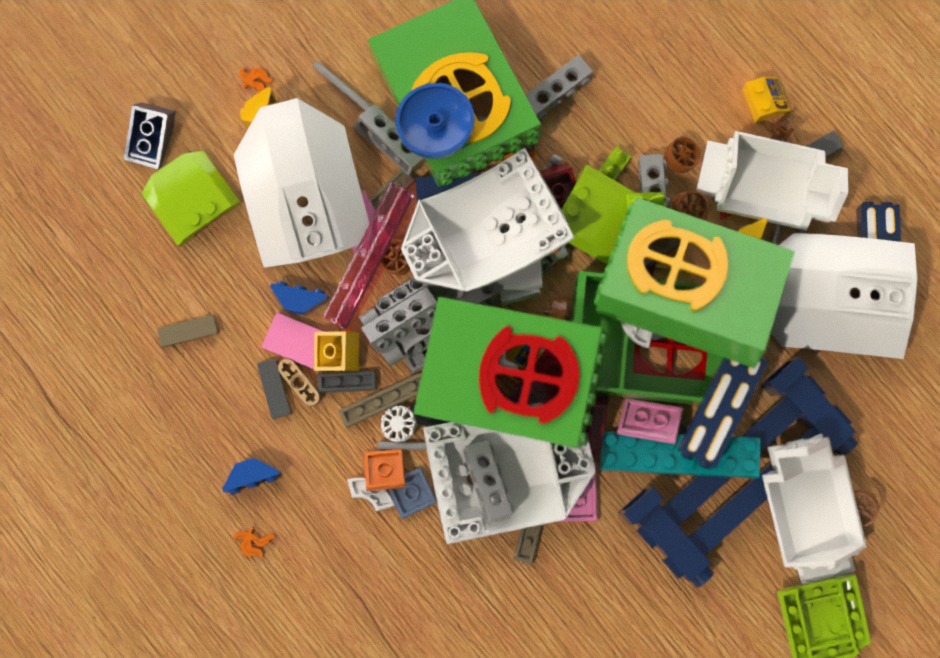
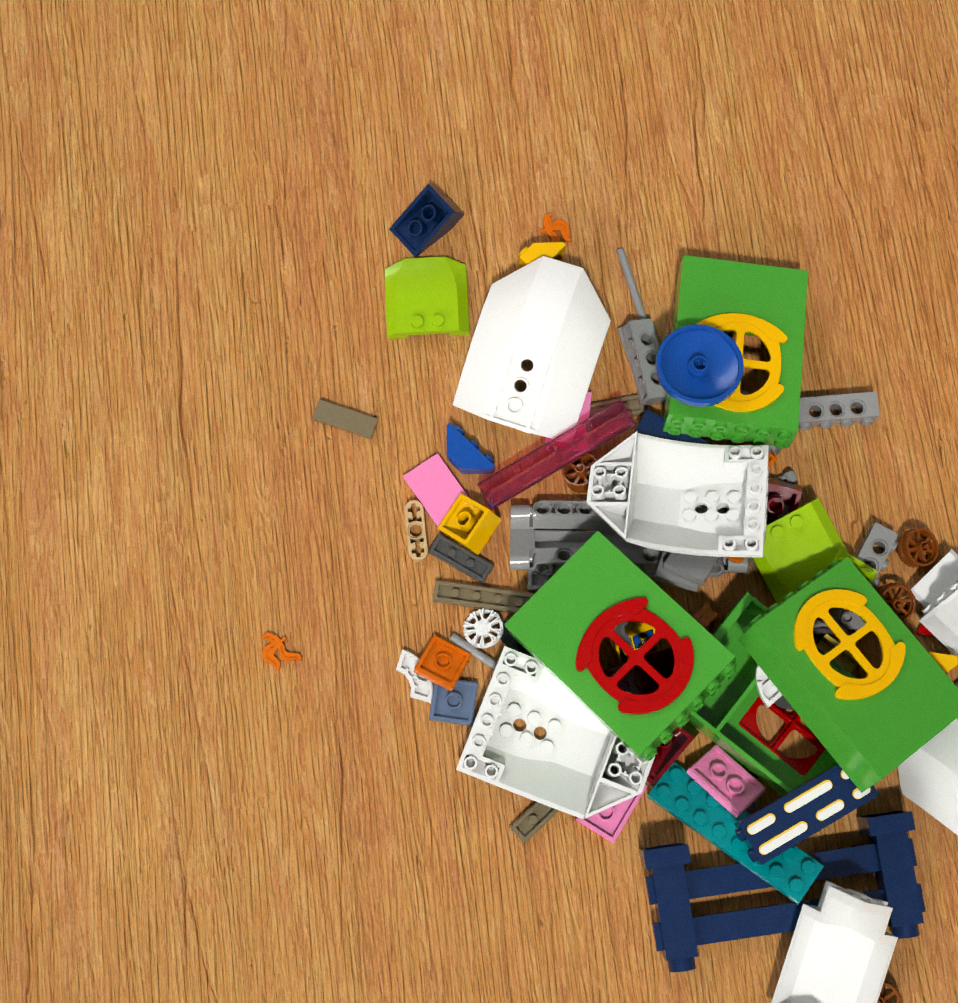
camera: 30 degrees right, 5 degrees down
(249, 474) = (315, 586): blue slope -> none
(274, 389) = (389, 522): dark grey tile -> none
(401, 320) = (547, 532): light grey brick -> none
(491, 511) = (518, 767): light grey brick -> none
(615, 163) = (847, 515): lime tile -> none

